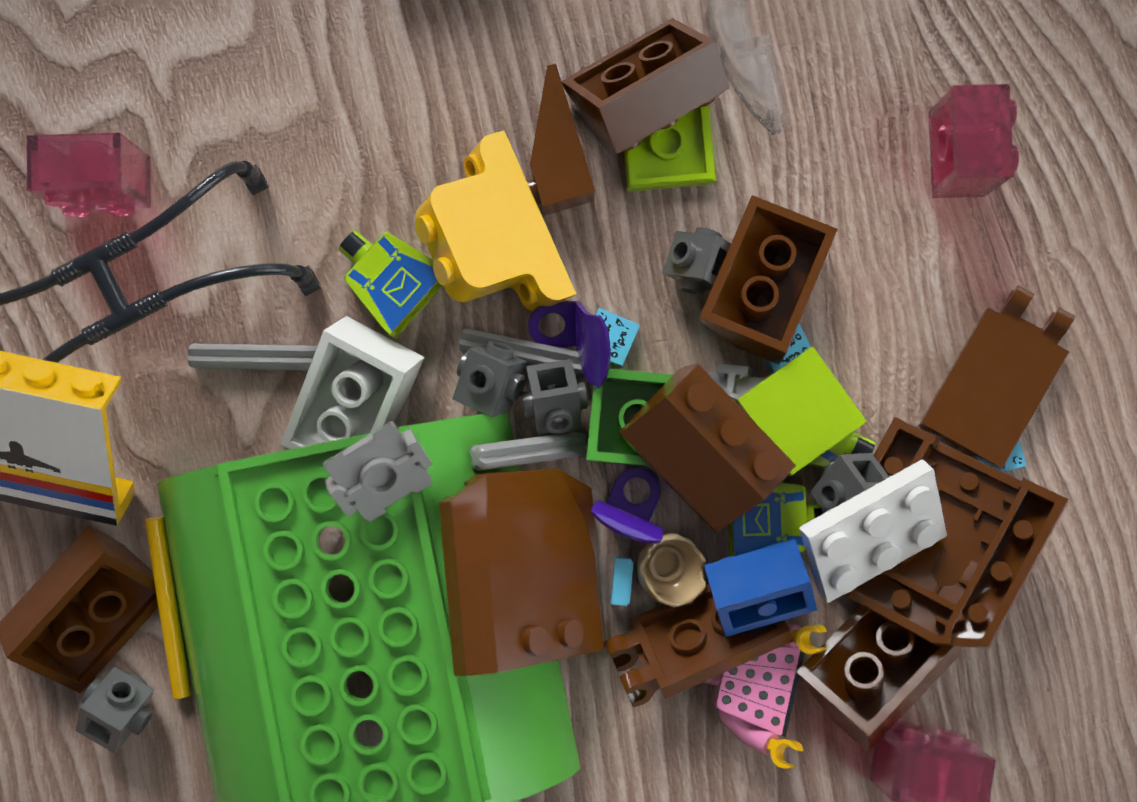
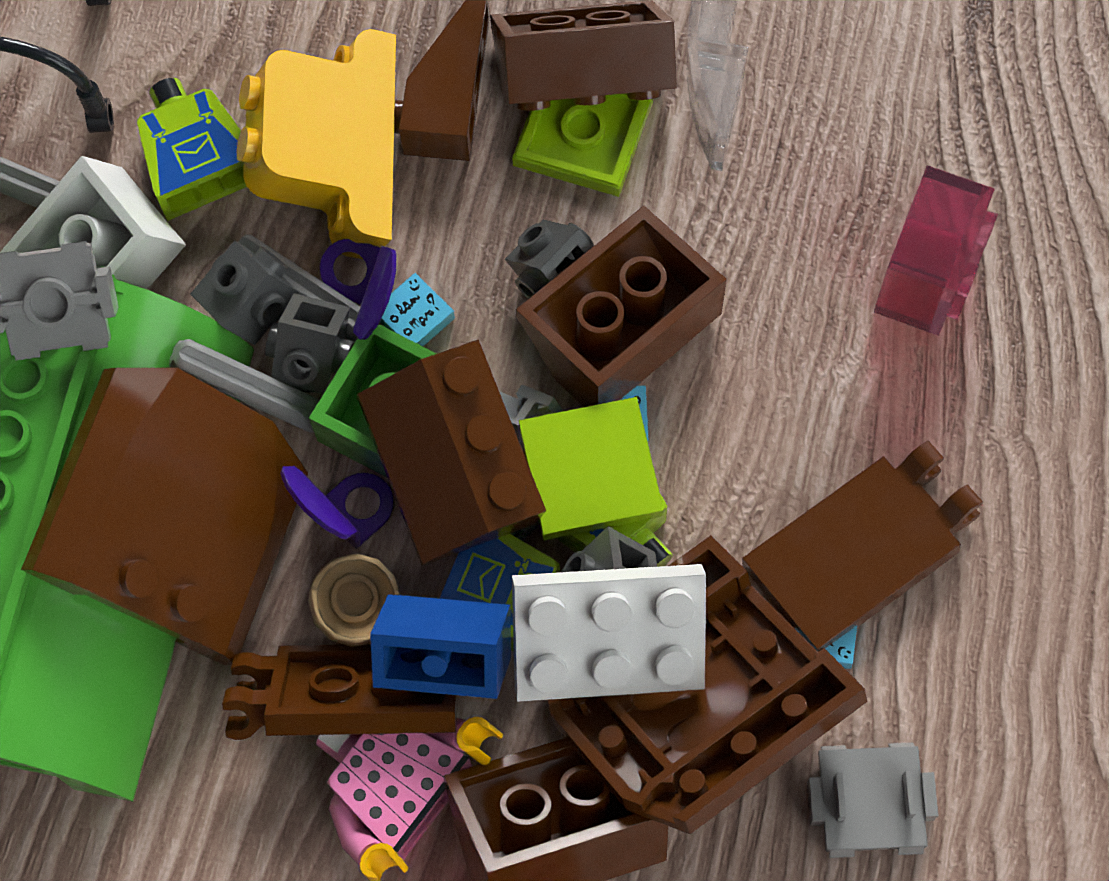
camera: 25 degrees right, 15 degrees down
(621, 580) = (288, 590): medium azure tile -> none
(1080, 554) = (872, 799): none -> light grey piece

